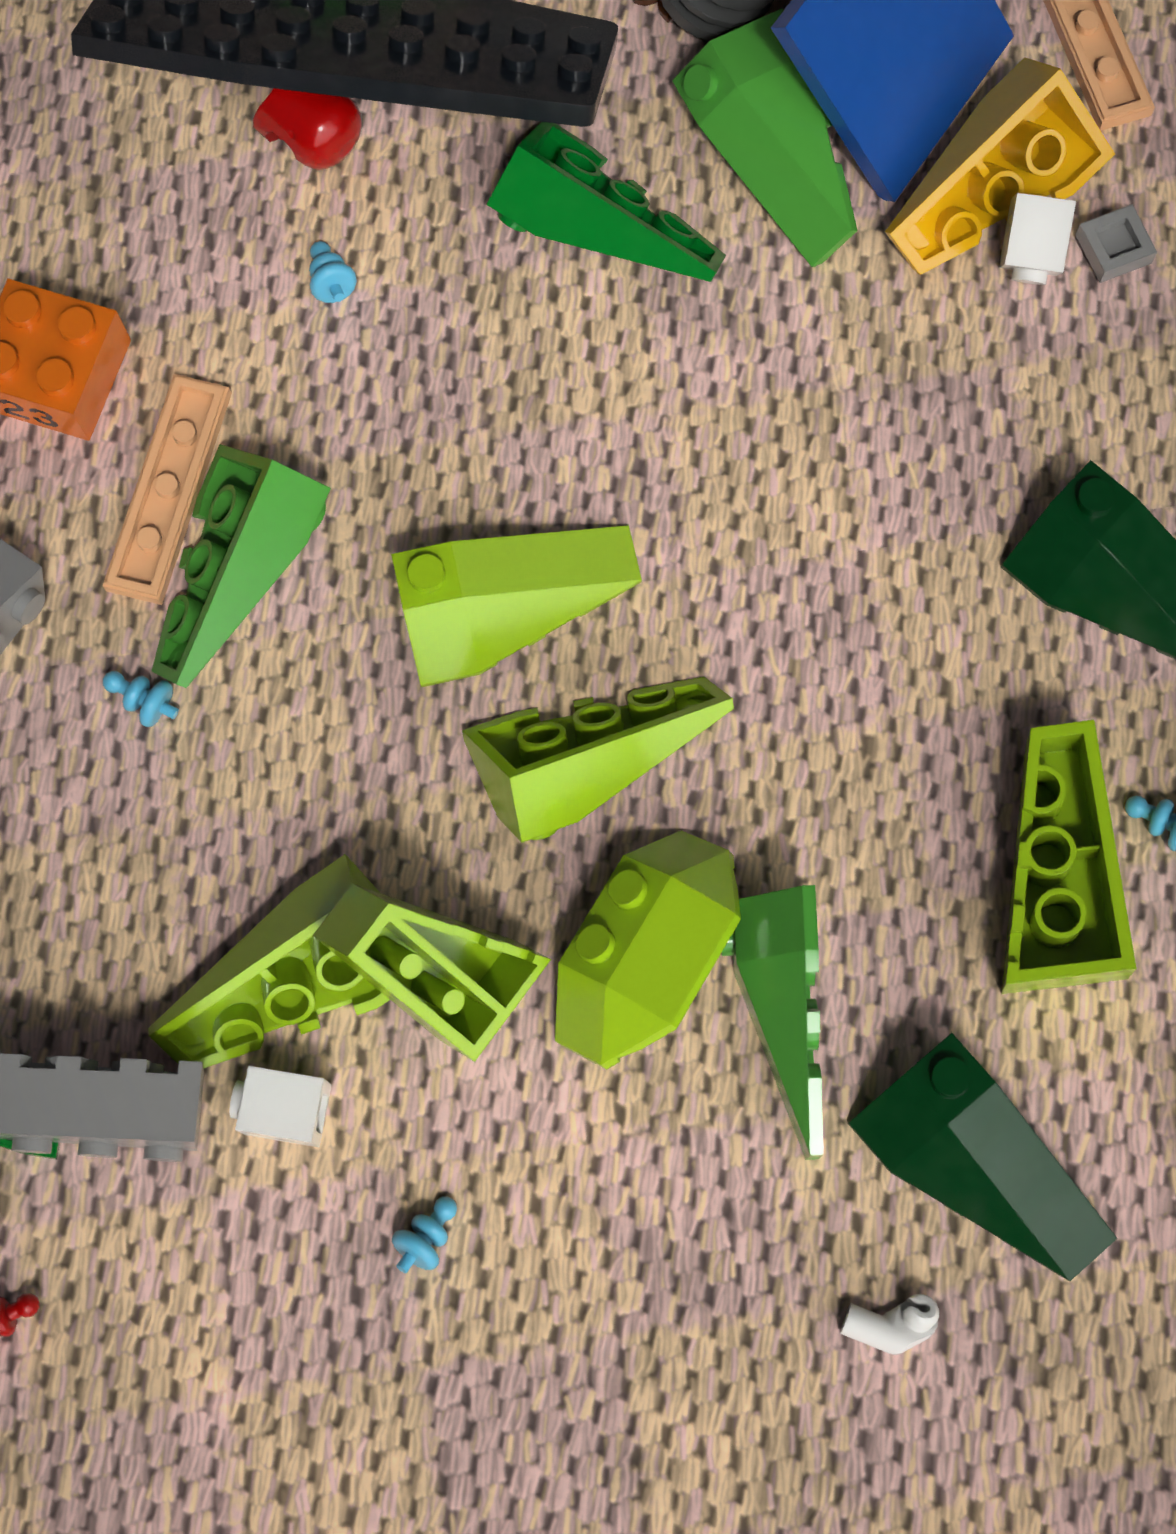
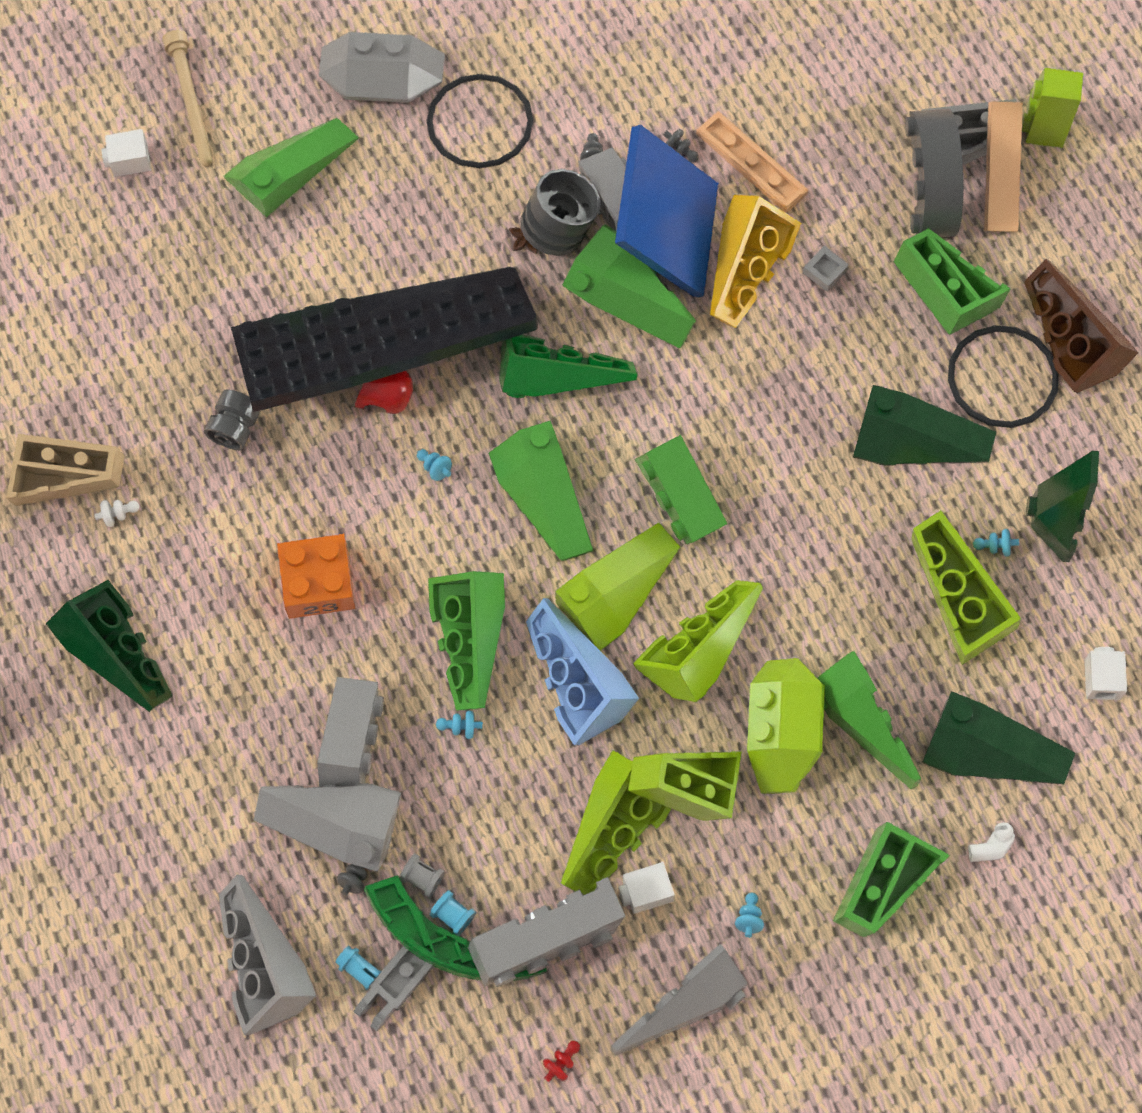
camera: 30 degrees left, 5 degrees down
(52, 72) = (231, 423): none -> dark grey wheel
(167, 489) = (412, 614): light nougat tile -> none
(267, 1326) = (705, 991): none -> light grey wedge
(373, 726) = (587, 683): none -> light blue wedge
(472, 378) = (538, 481): none -> bright green wedge
(675, 1293) = (885, 878): none -> bright green wedge
(684, 487) = (681, 490): none -> bright green wedge
(1036, 237) = (786, 284): white brick -> none

